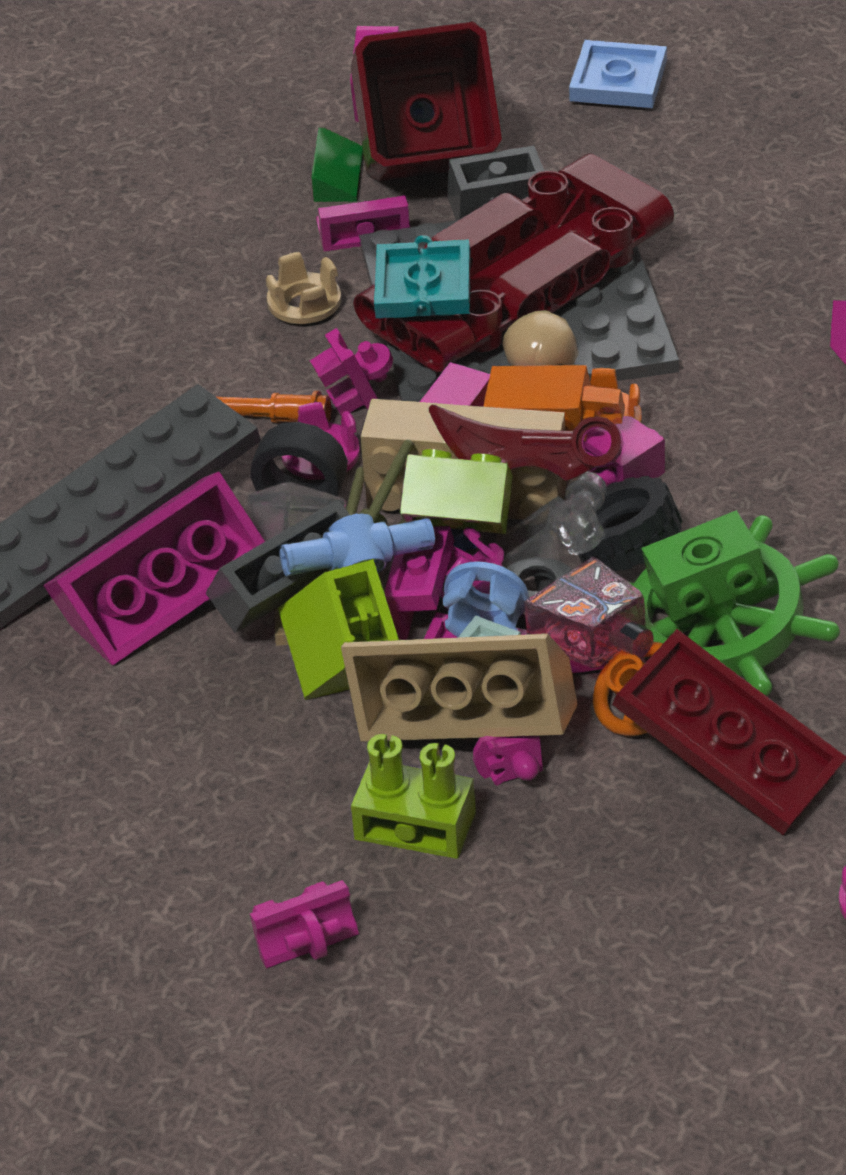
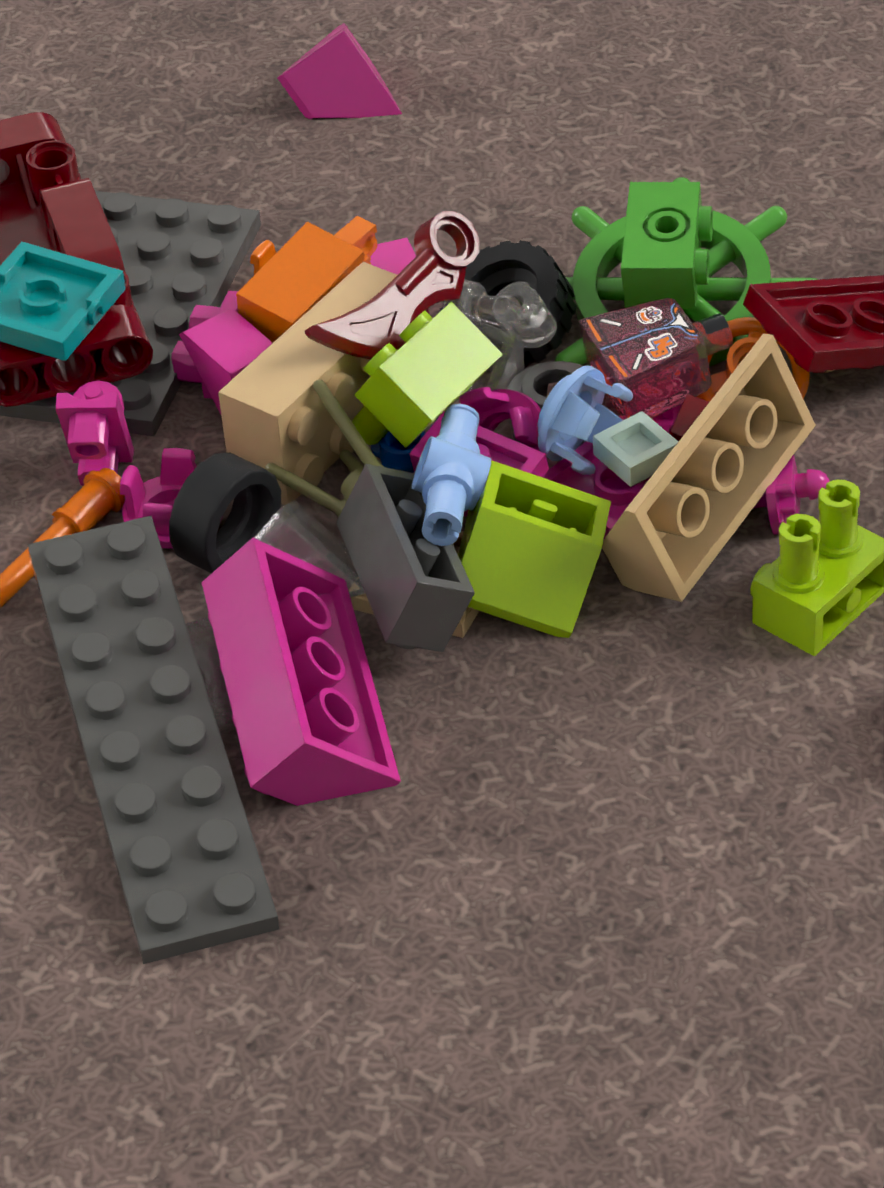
camera: 65 degrees left, 0 degrees up
(540, 341) = (176, 277): tan hair -> none

